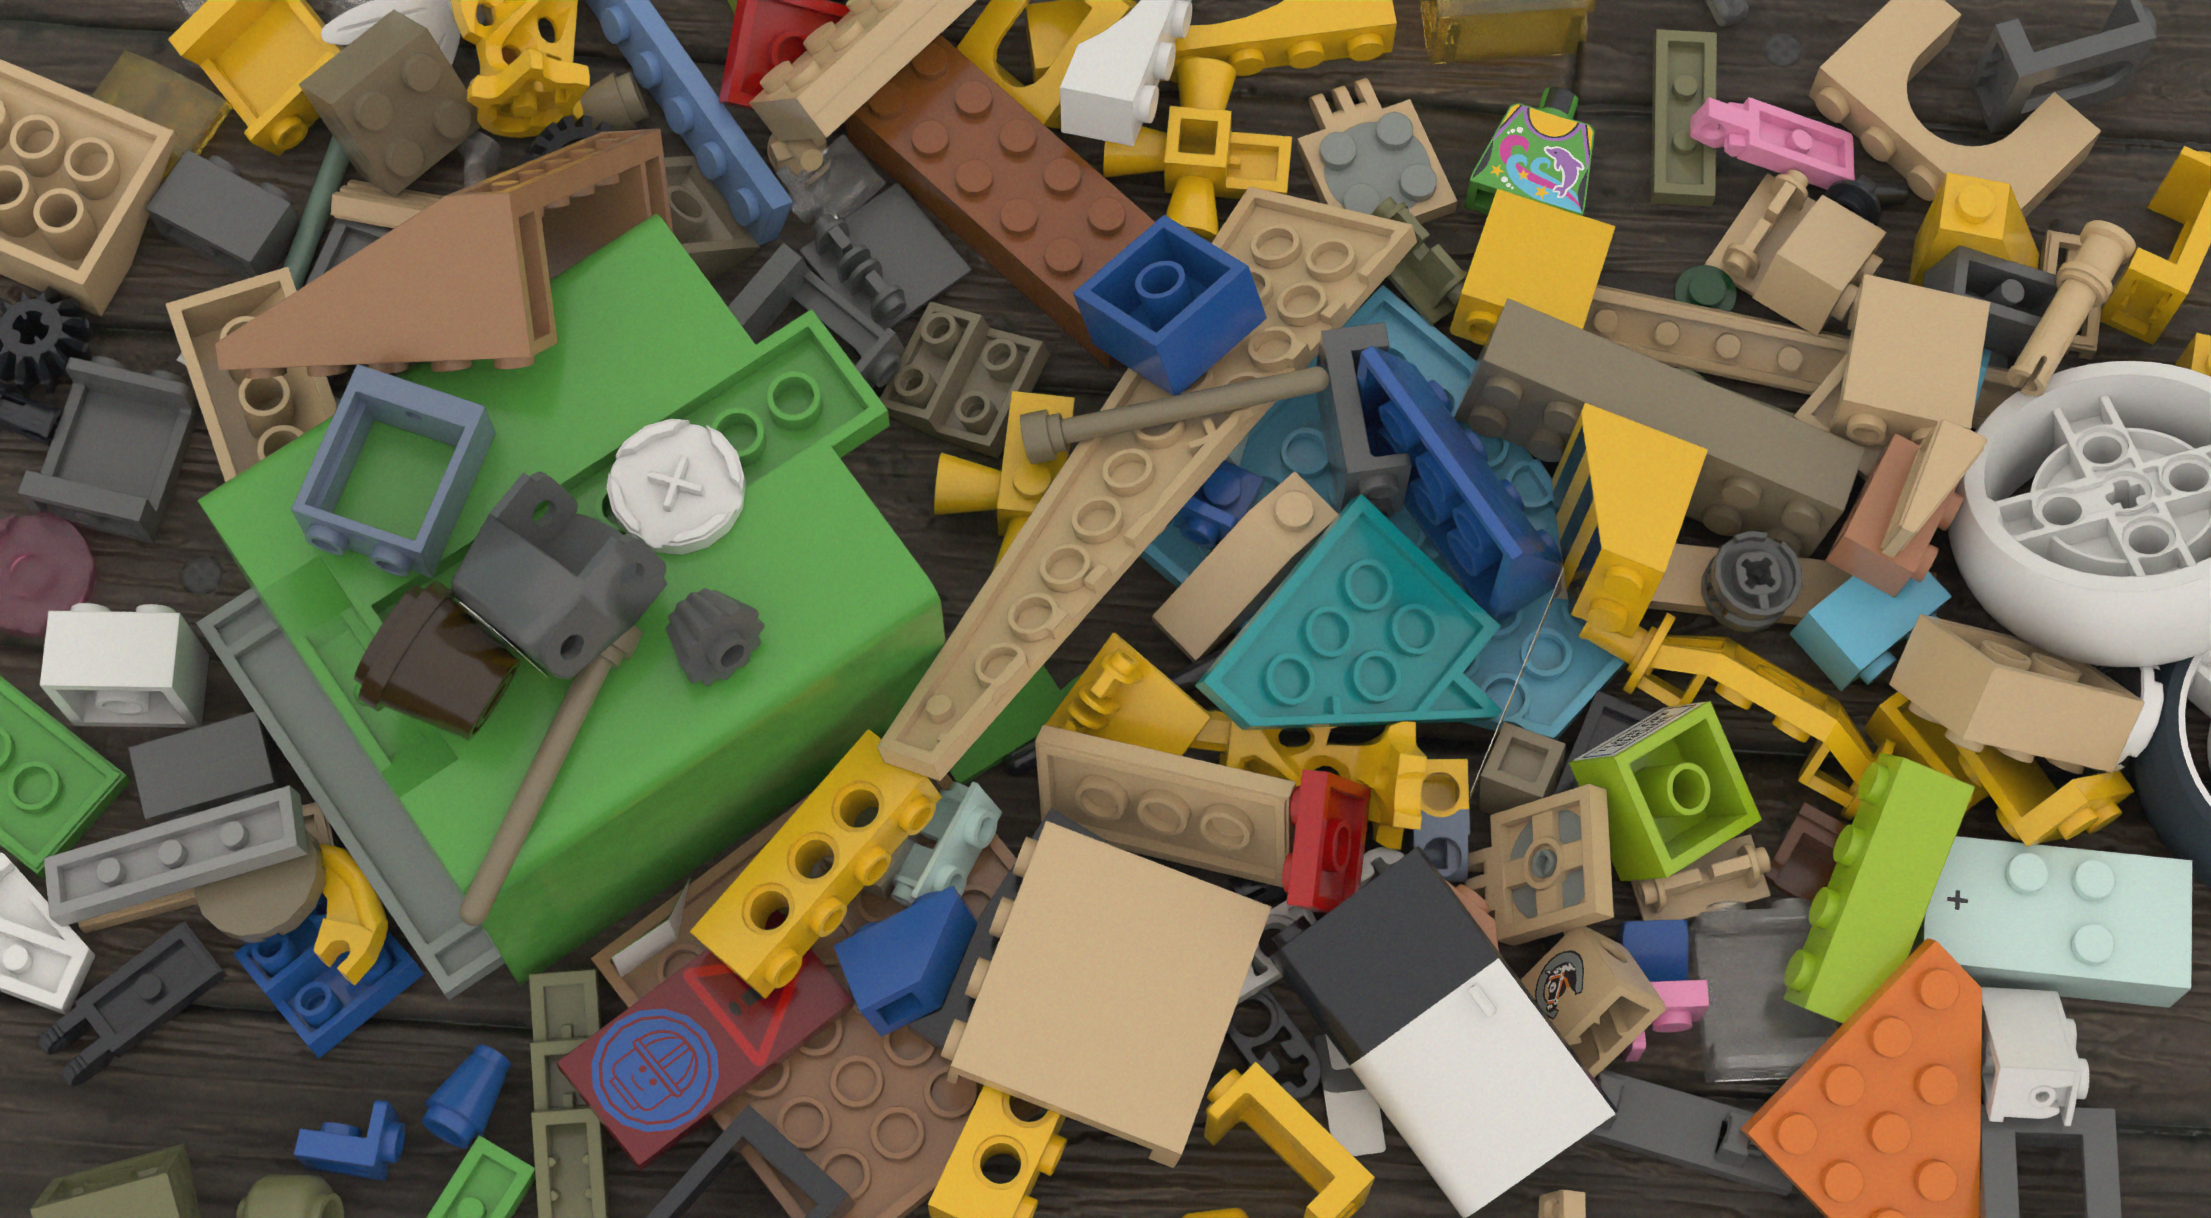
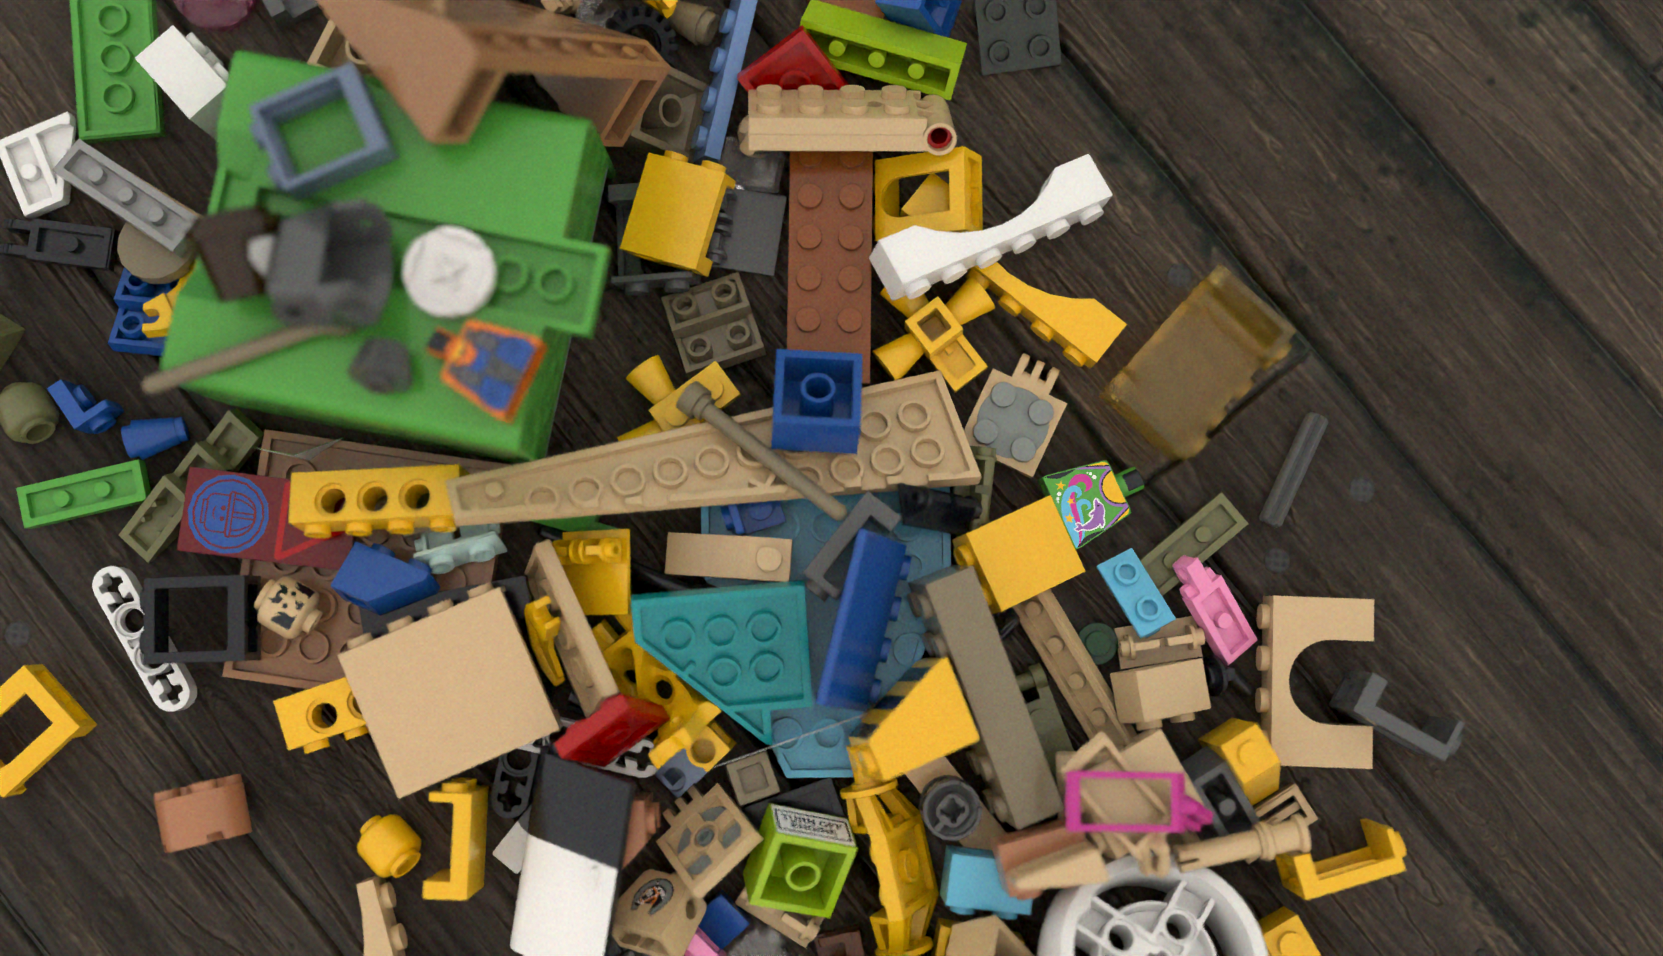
camera: 45 degrees right, 15 degrees up
(204, 768) = (180, 165): dark grey brick -> none
(806, 263) = (676, 212): none -> yellow panel
(823, 526) = (489, 365): none -> torso
(831, 1099) = (288, 607): none -> tan head
(1136, 832) = (541, 633): none -> yellow piece
(1405, 295) = (936, 509): none -> black hinge
(1676, 198) = (1136, 593): none -> medium azure hinge
(1975, 307) = (1180, 804): none -> dark pink sword
(1993, 380) = (1156, 841): none -> tan sword

